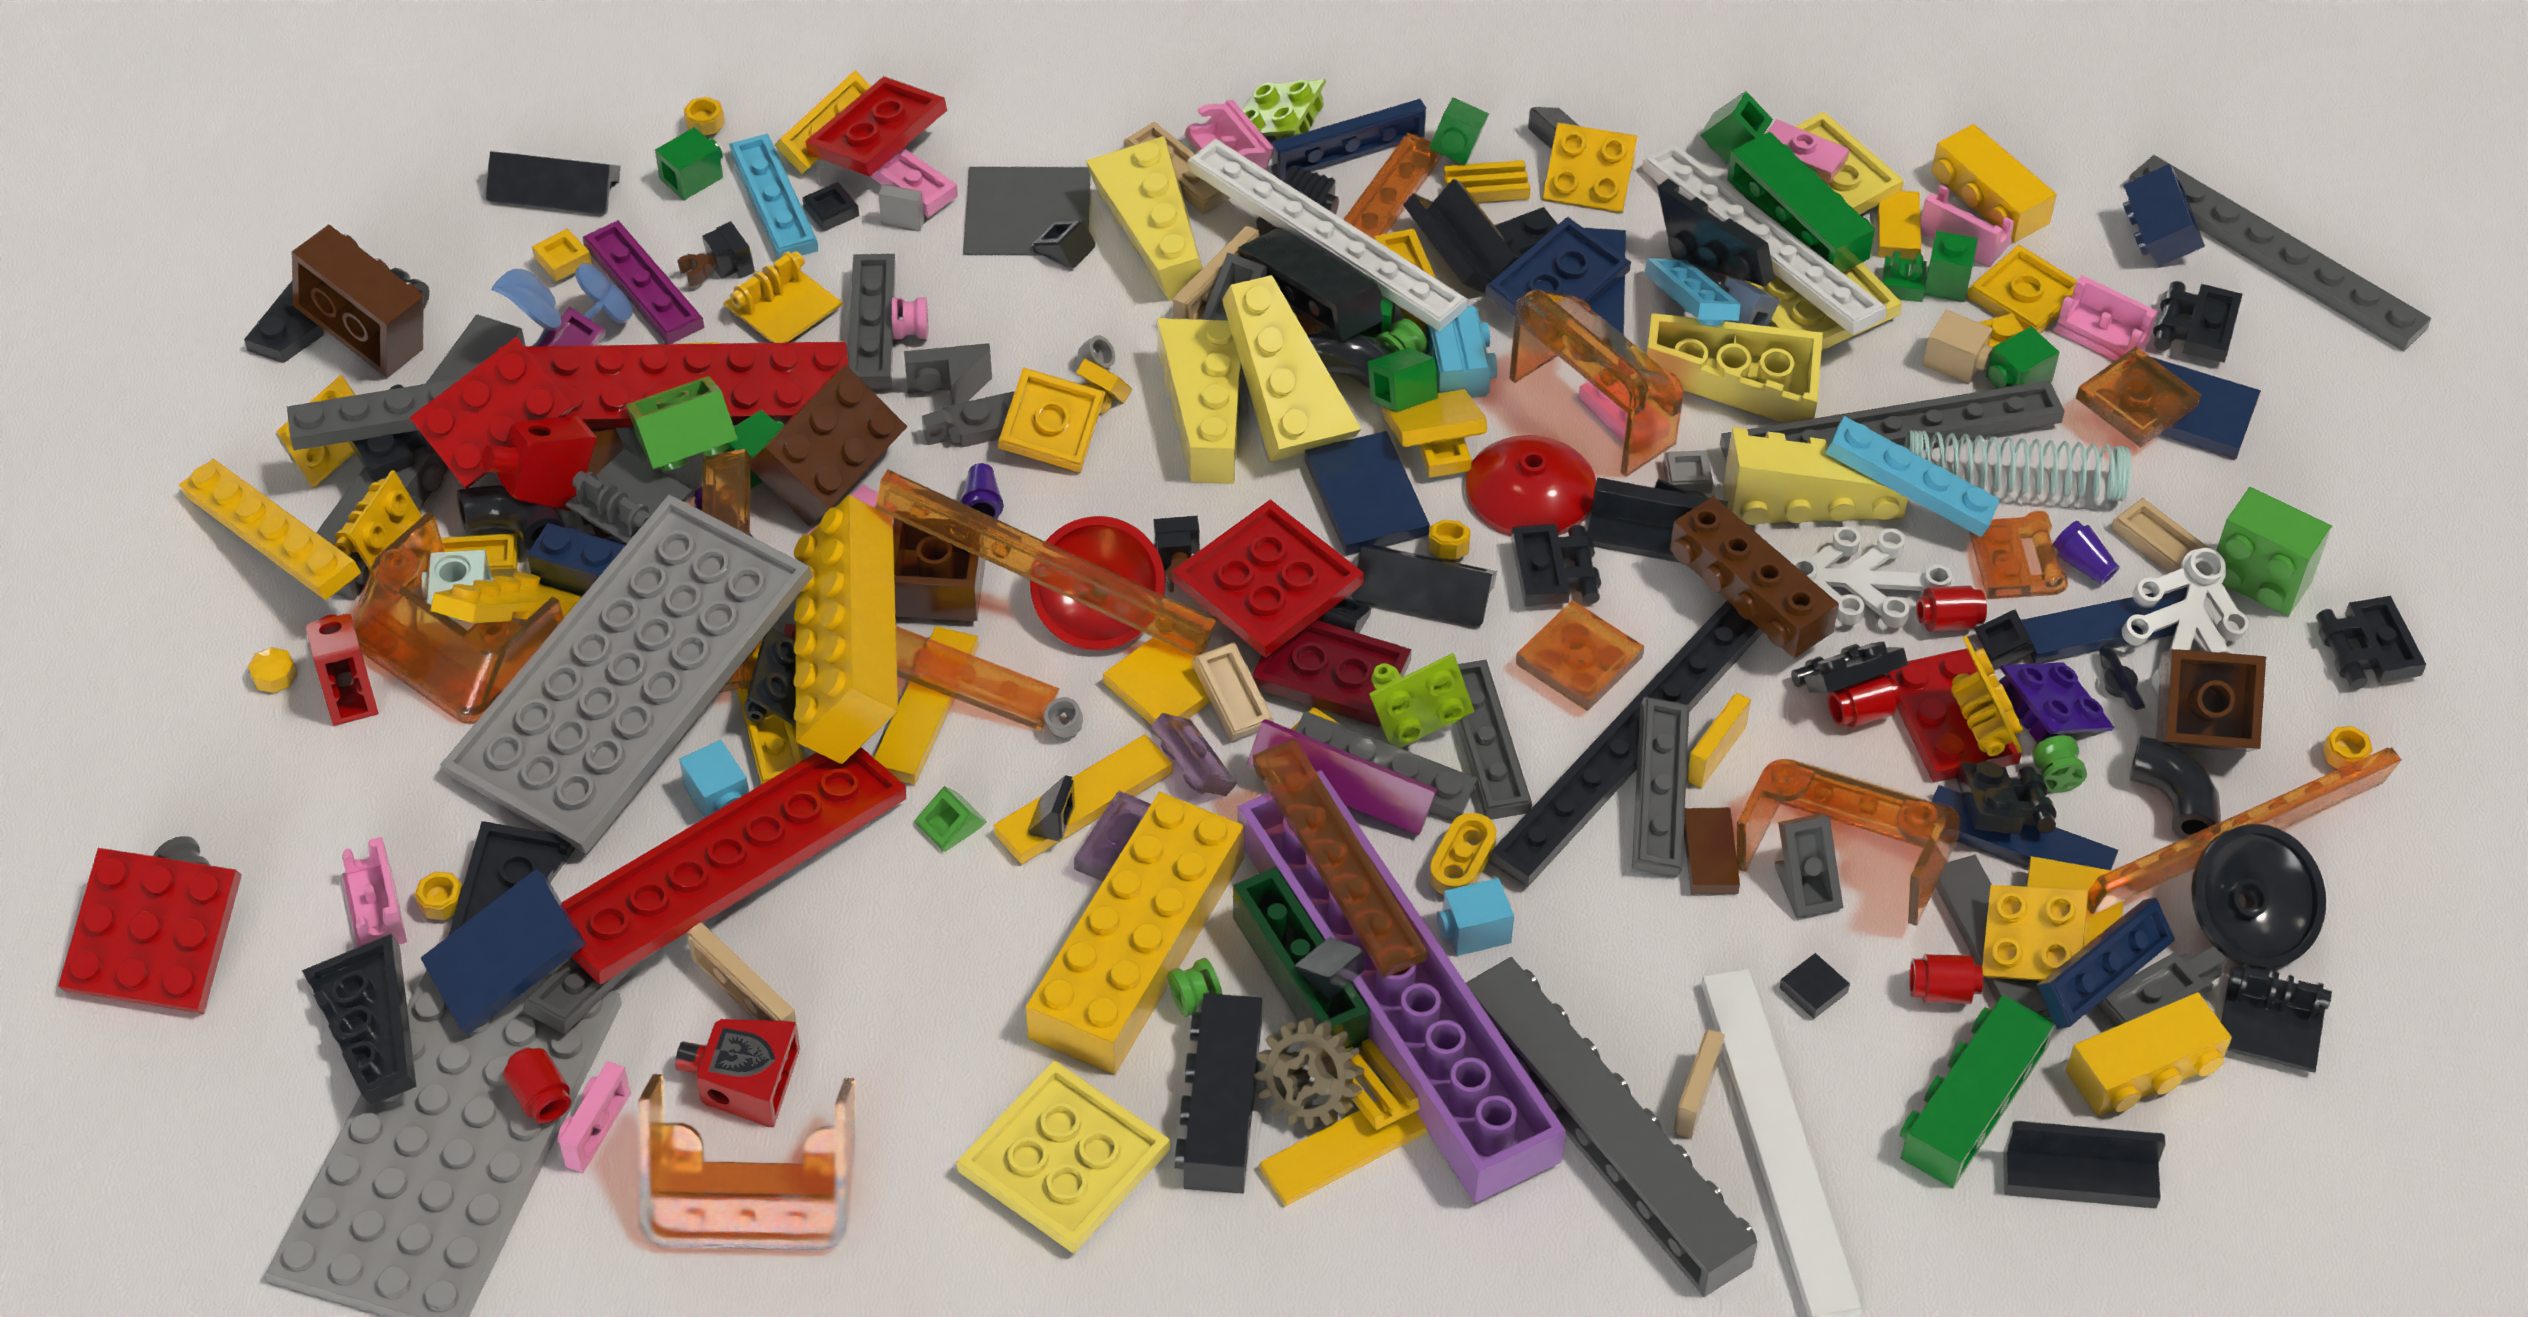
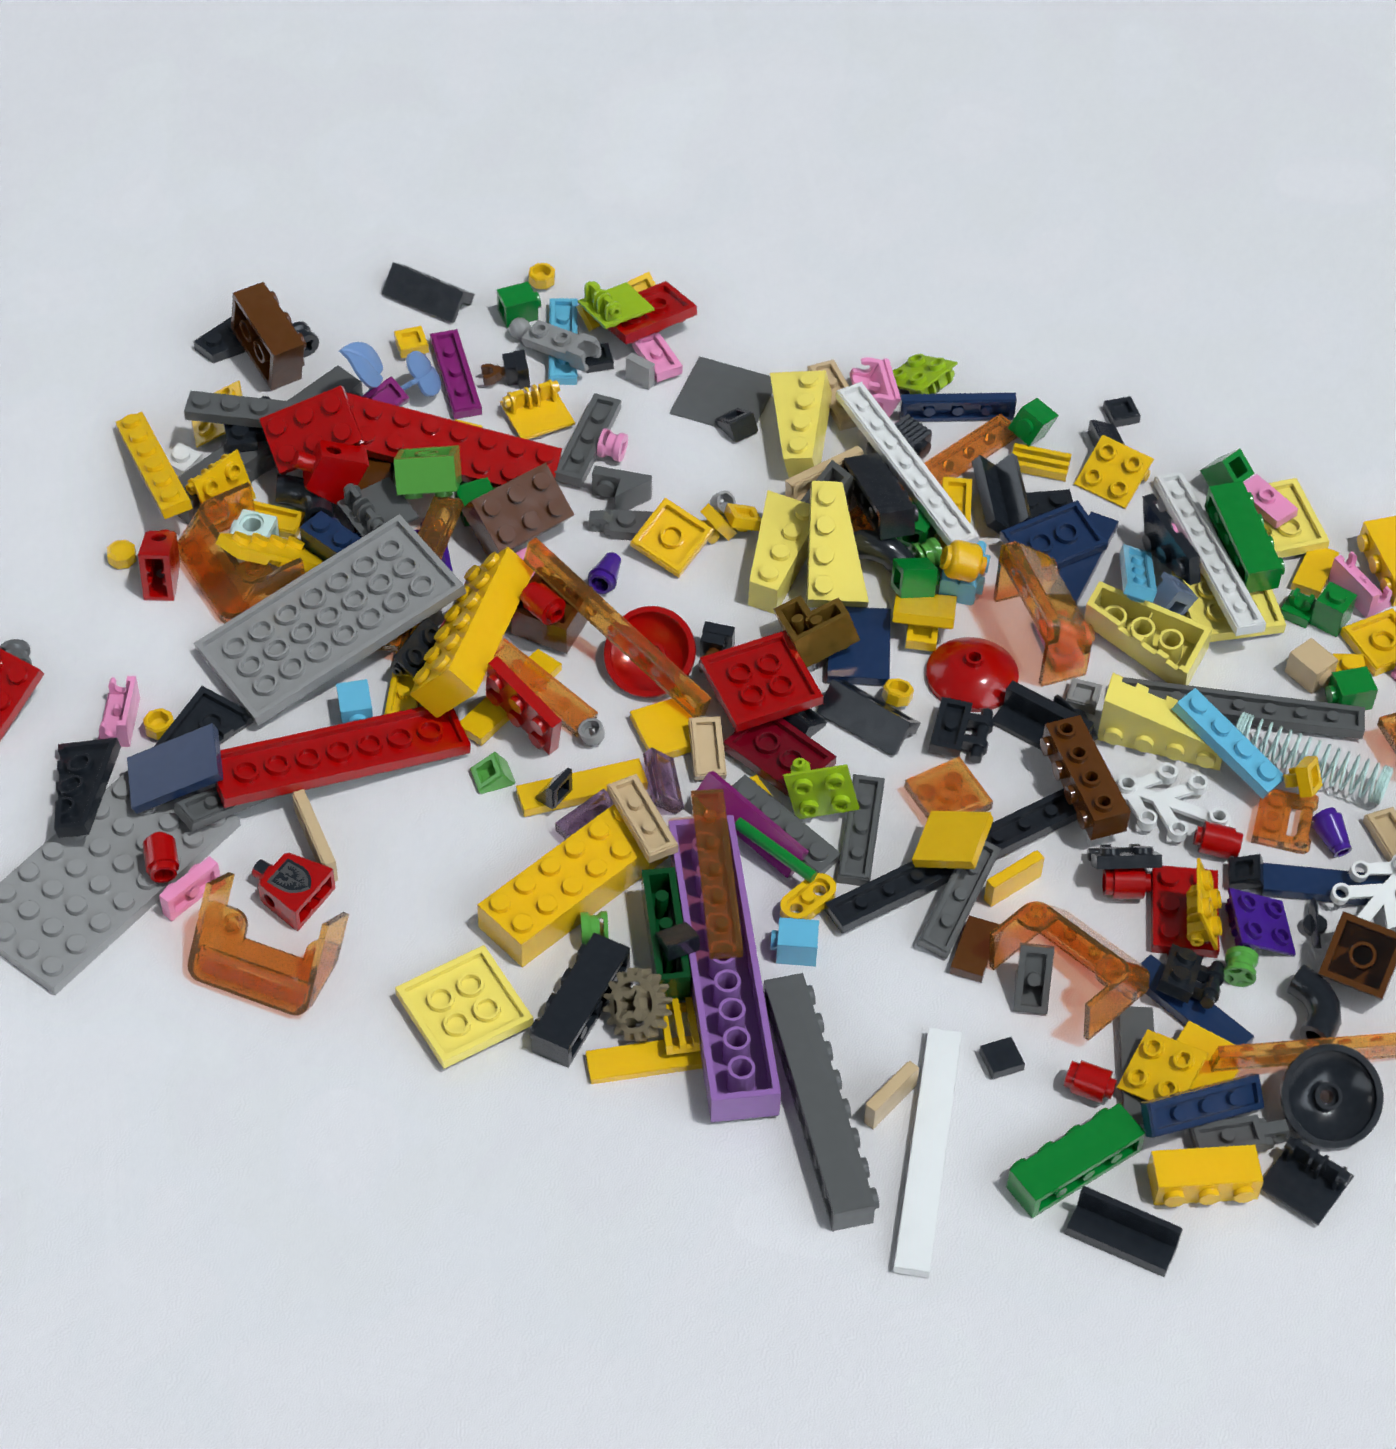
camera: 20 degrees right, 0 degrees up
(307, 506) = (183, 458): none -> white plate
(769, 199) = (556, 342): none -> light grey plate
(831, 125) = (614, 304): none -> lime hinge
(929, 558) = (543, 603): none -> red brick
(962, 709) = (523, 706): none -> red plate
(1134, 365) = (742, 517): none -> yellow plate
(1203, 813) = (642, 818): none -> tan tile
(1314, 488) = (818, 631): none -> pearl gold brick
(1395, 801) = (775, 850): none -> green bar
(1464, 337) = (963, 561): none -> yellow head
(1559, 88) = (1121, 411): none -> black tile
(1624, 713) = (952, 839): none -> yellow tile
(2024, 491) = (1305, 777): none -> yellow tile

